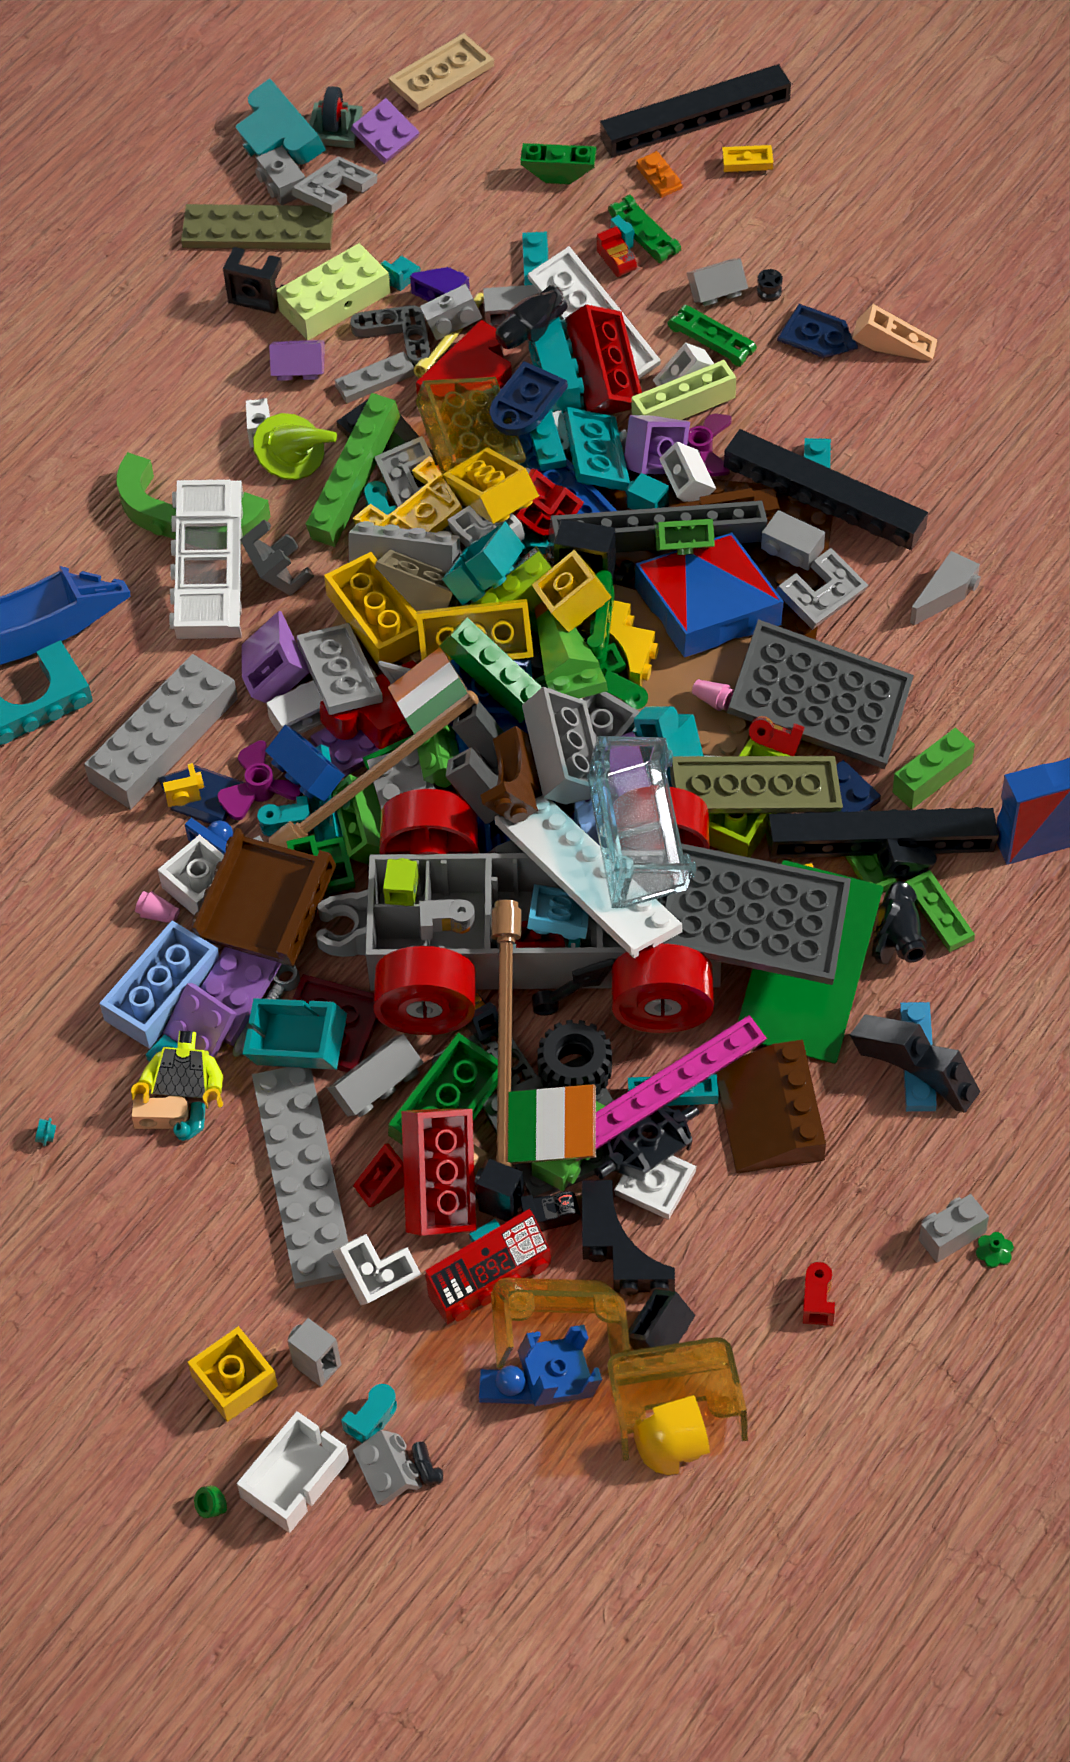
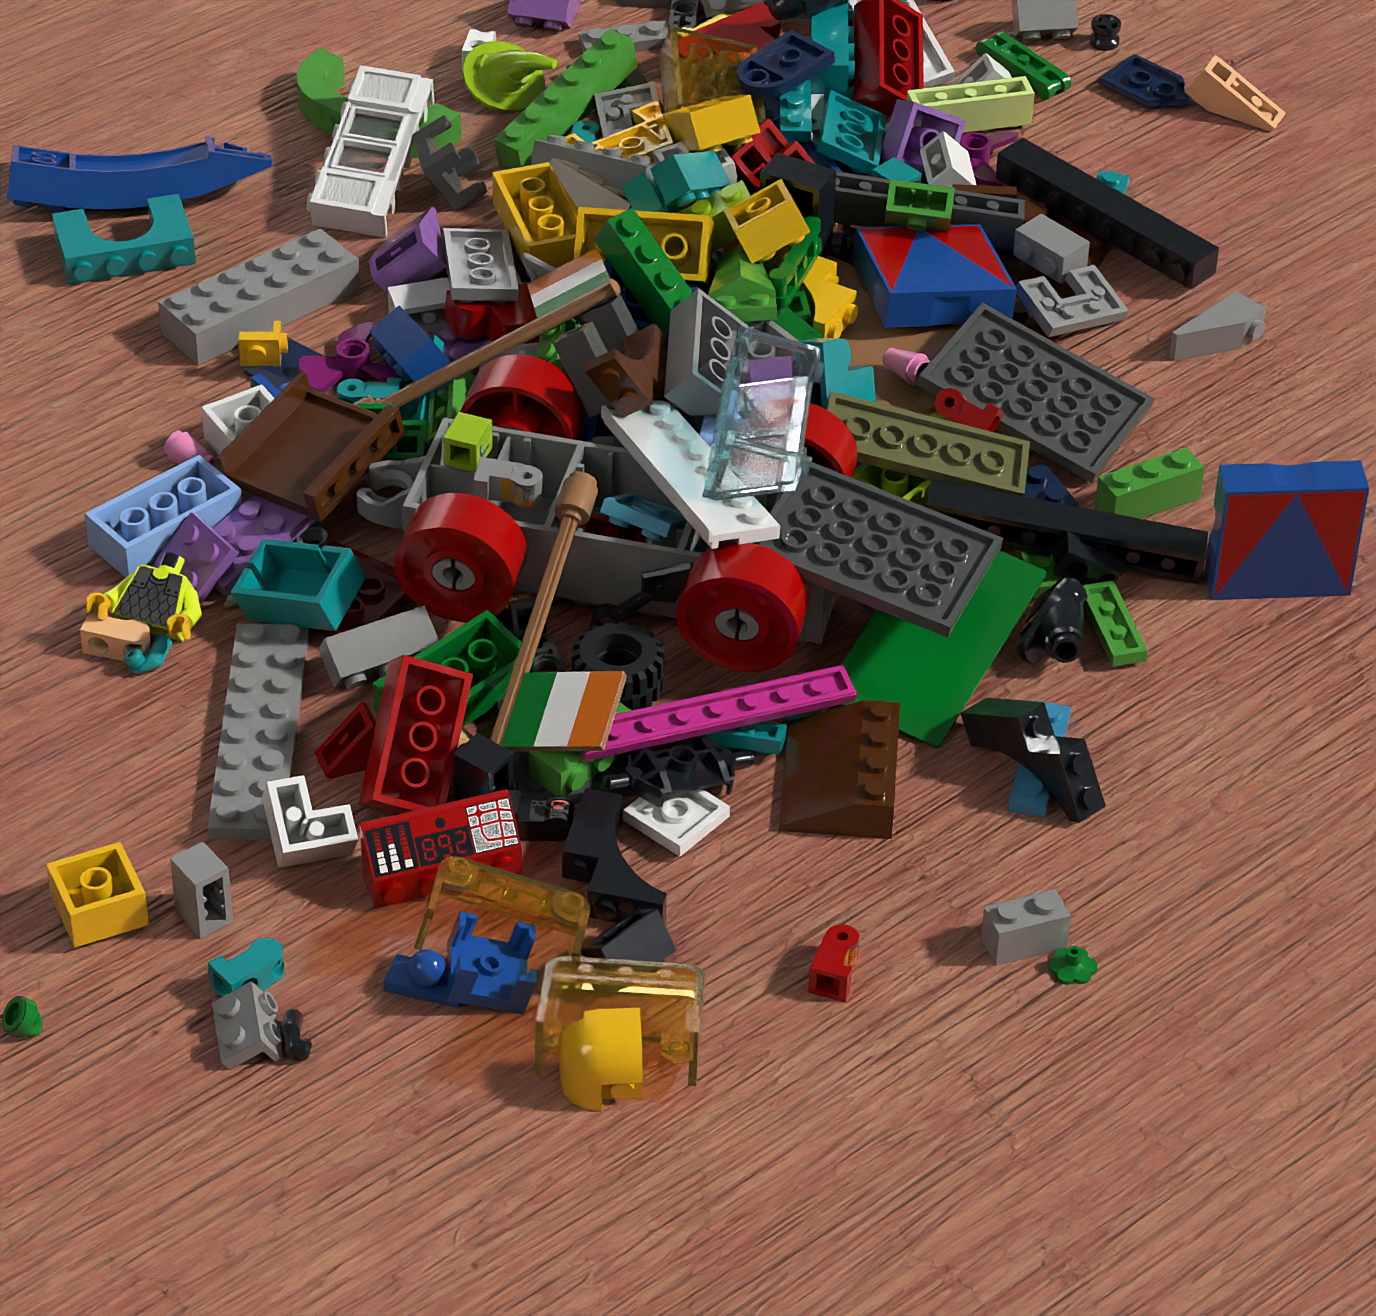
camera: 10 degrees right, 15 degrees down
(293, 1471) = (130, 1002): white piece -> none

